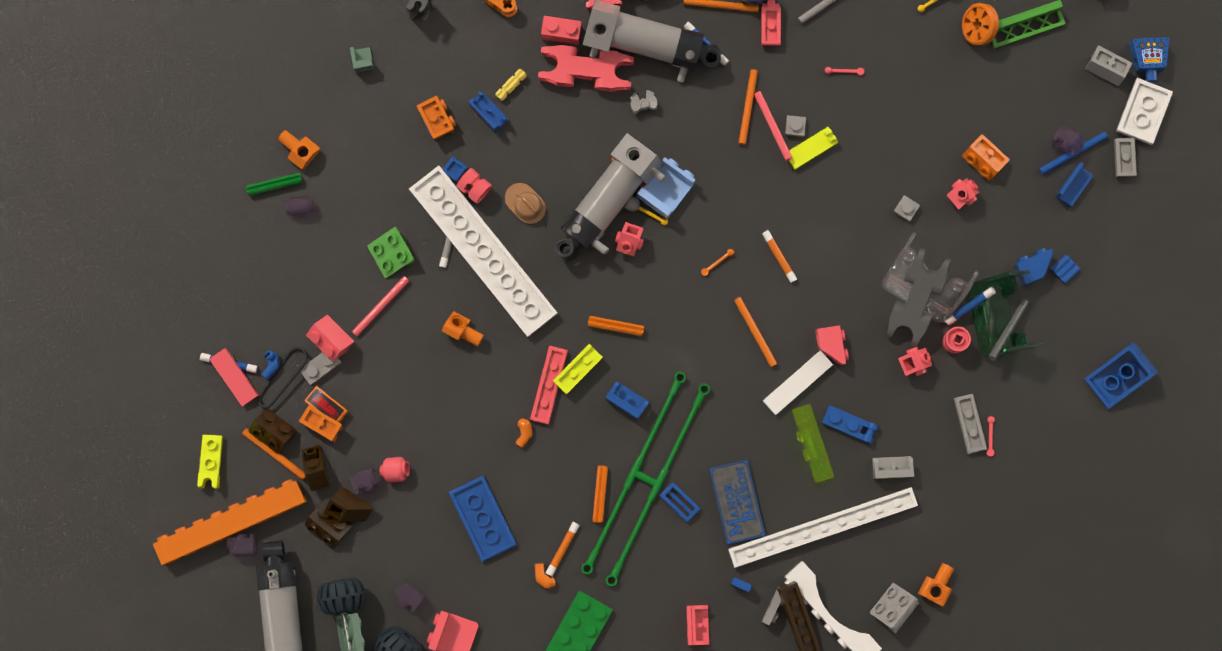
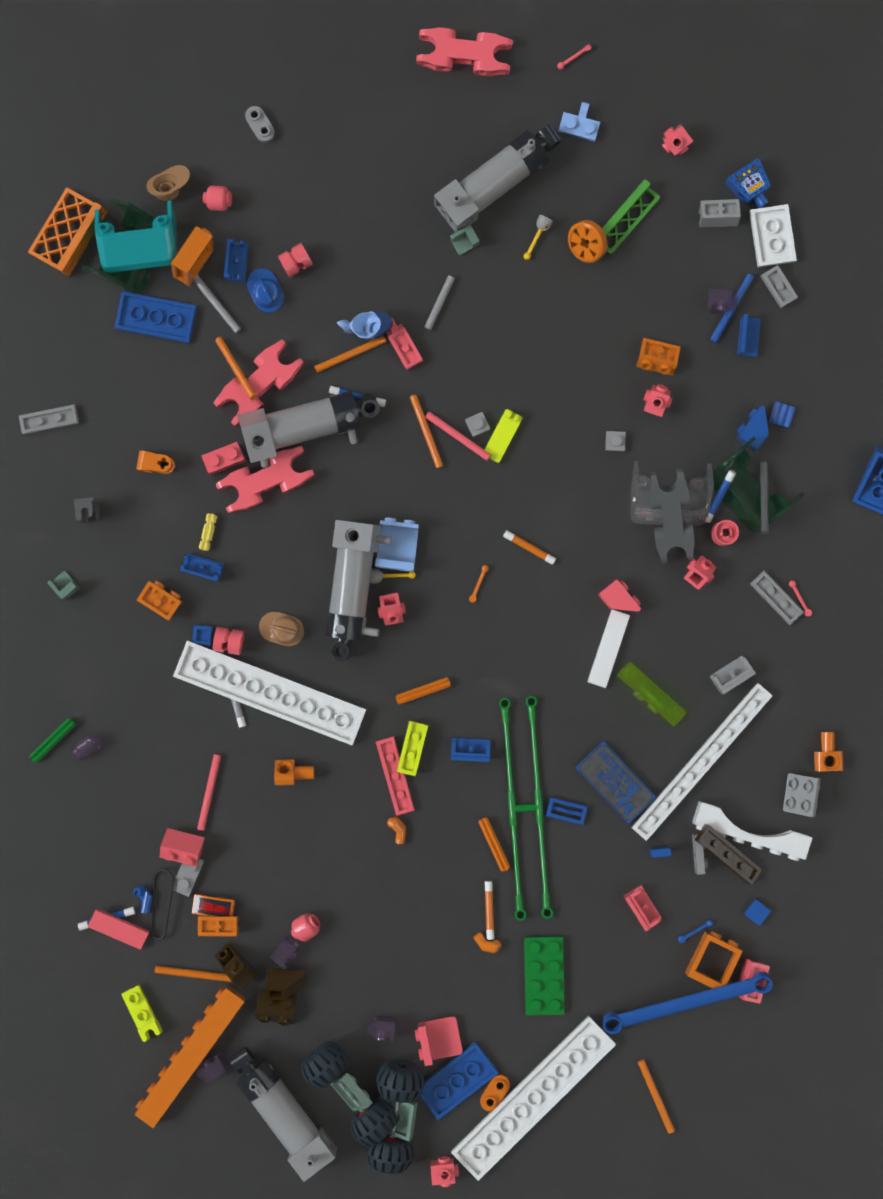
camera: 30 degrees left, 5 degrees up
(272, 430) = (179, 955): dark brown bracket -> none
(296, 146) = (51, 696): orange piece -> none
(390, 252) = (190, 740): bright green hinge -> none
(482, 518) = (405, 924): blue tile -> none
(643, 104) = (330, 485): light grey piece -> none
(755, 331) = (546, 625): orange bar -> none
(849, 424) = (673, 658): blue plate -> none
(860, 71) = (505, 343): coral hinge -> none

